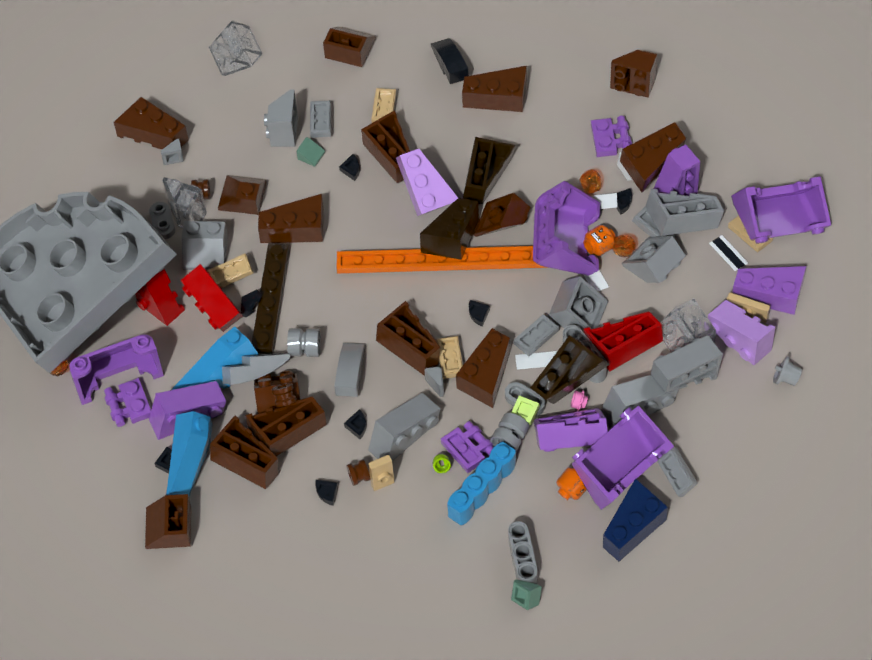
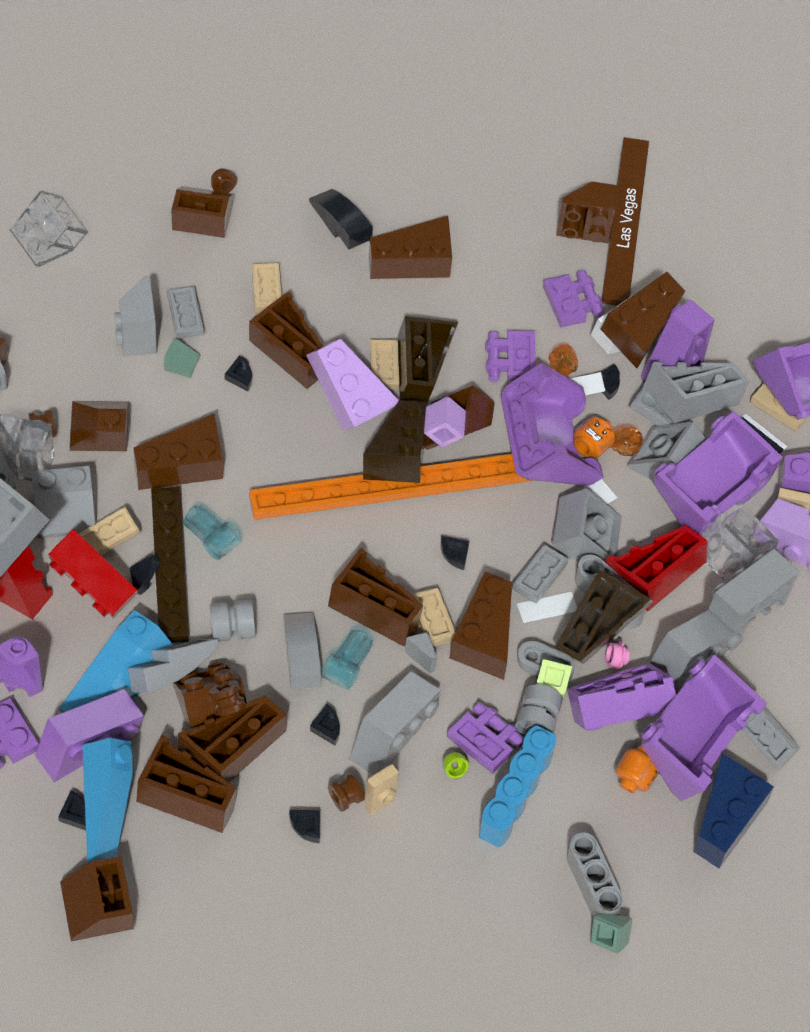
camera: 20 degrees left, 0 degrees up
(306, 281) = (216, 537): none -> clear light blue piece
(369, 21) = (223, 180): none -> reddish brown plate
(378, 383) = (345, 664): none -> clear light blue piece
(457, 170) = (385, 362): none -> tan plate
(486, 217) = (444, 422): none -> lavender brick
(559, 169) = (520, 354): none -> medium lavender plate
(665, 79) = (625, 221): none -> reddish brown tile
(688, 274) = (717, 473): none -> medium lavender windscreen

